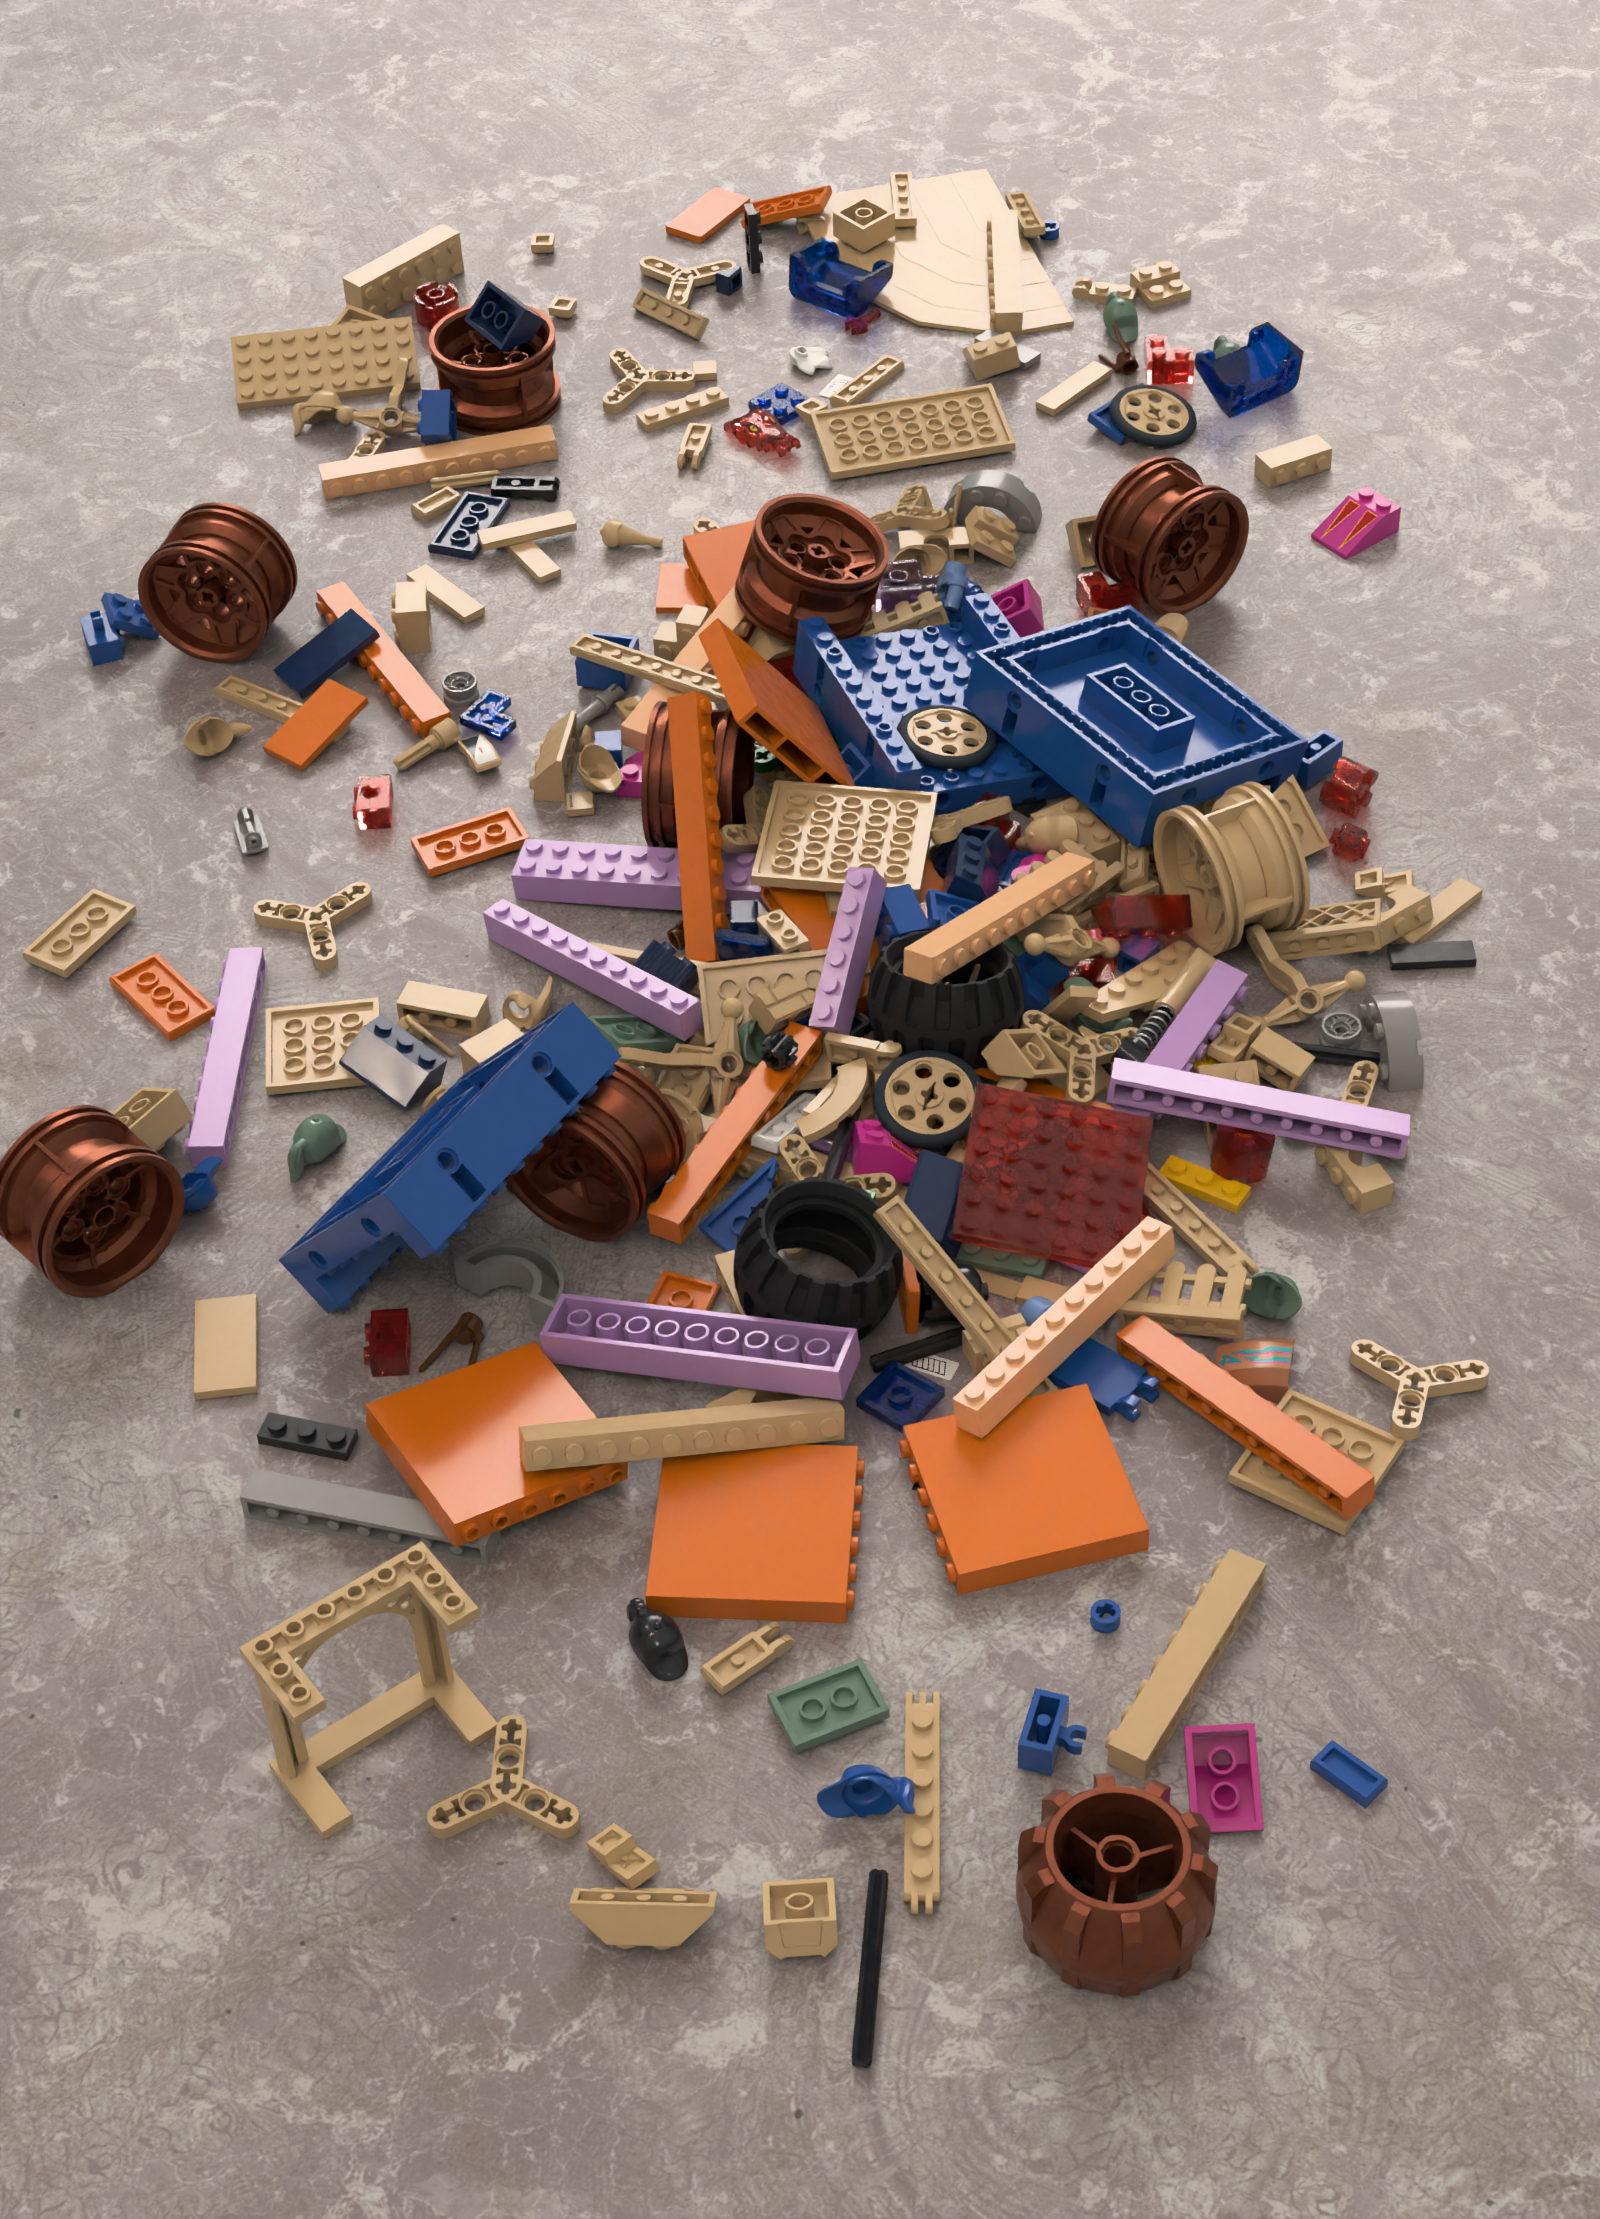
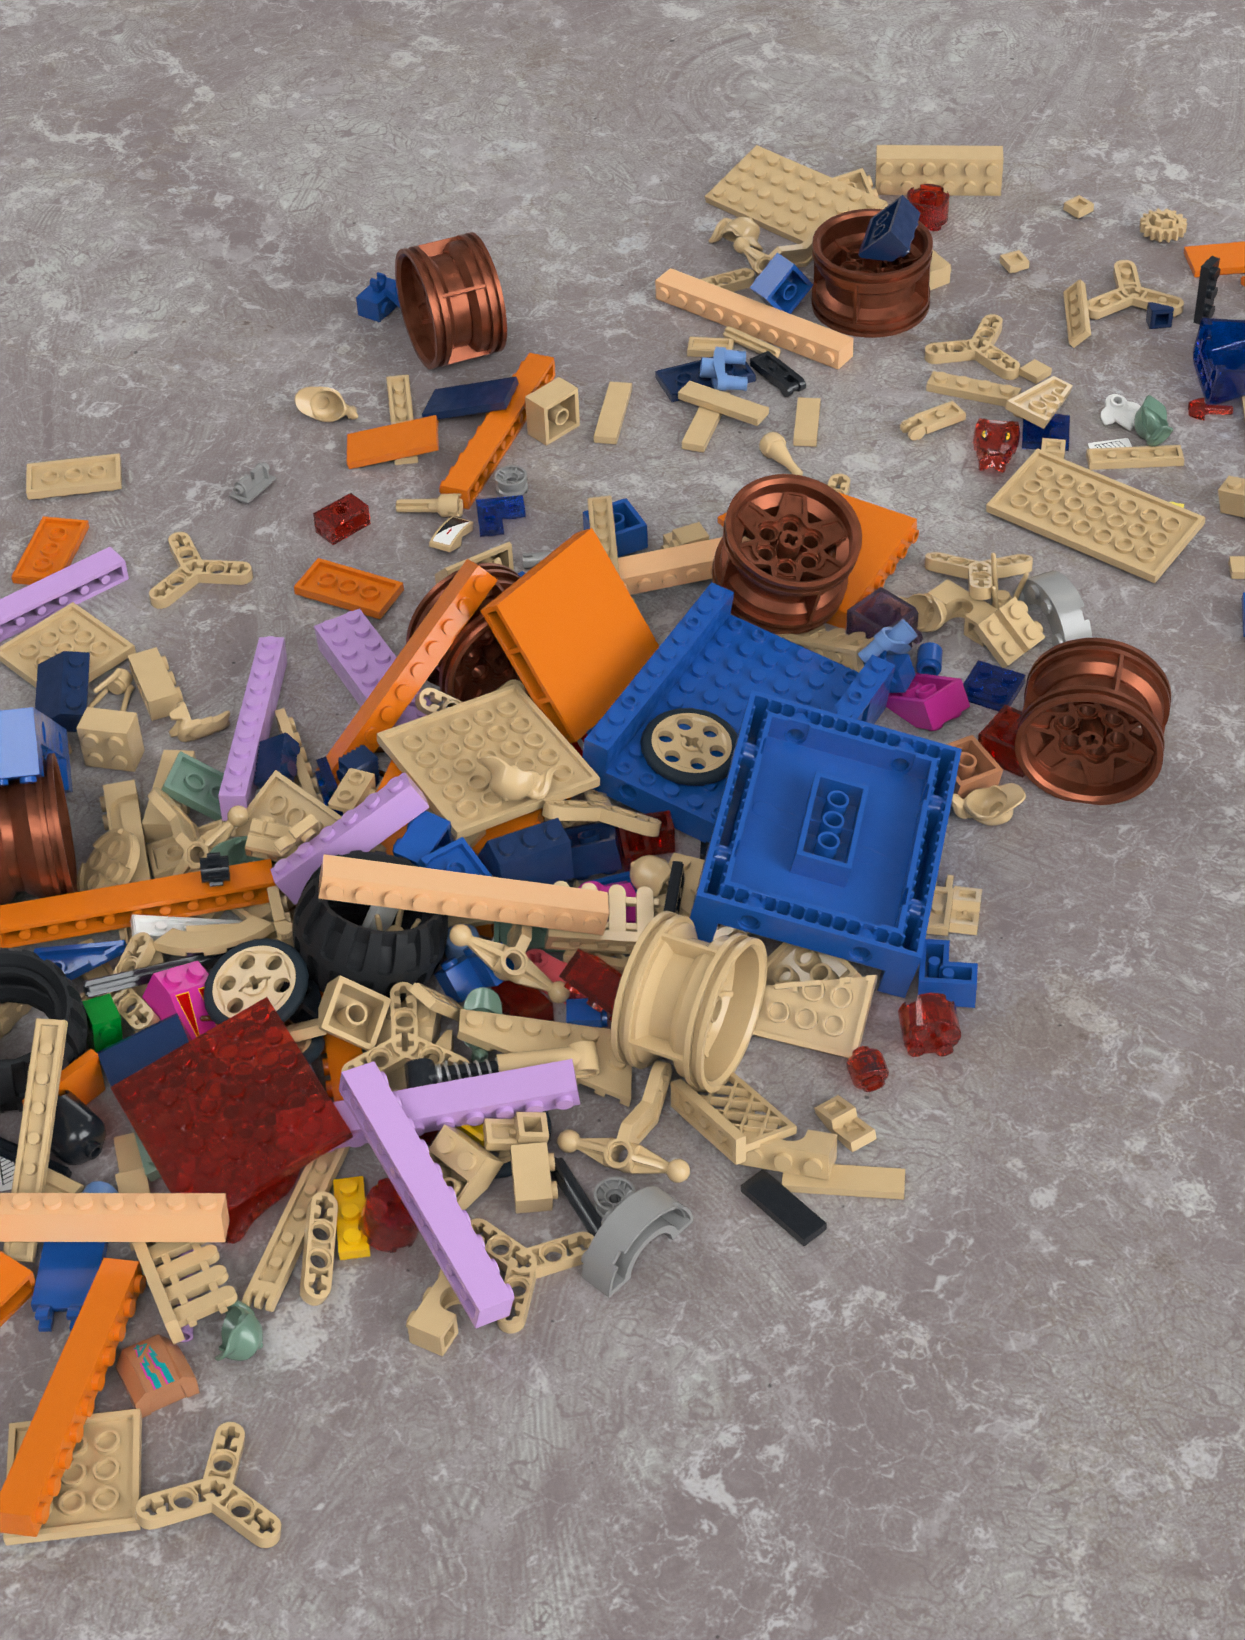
camera: 50 degrees right, 0 degrees up
(480, 507) = (715, 369): none -> medium blue connector
(602, 504) = (807, 422): none -> tan tile
(627, 219) = (1163, 225): none -> tan gear
(756, 384) = (1040, 402): none -> tan wing
(809, 975) = (300, 833): none -> tan plate
(853, 354) = (1152, 422): none -> sand green hair
(906, 827) = (514, 783): none -> tan hair
(1034, 571) = (993, 685): none -> clear blue plate
(1100, 835) = (675, 887): none -> black tile
(1225, 1211) = (317, 1247): none -> tan beam

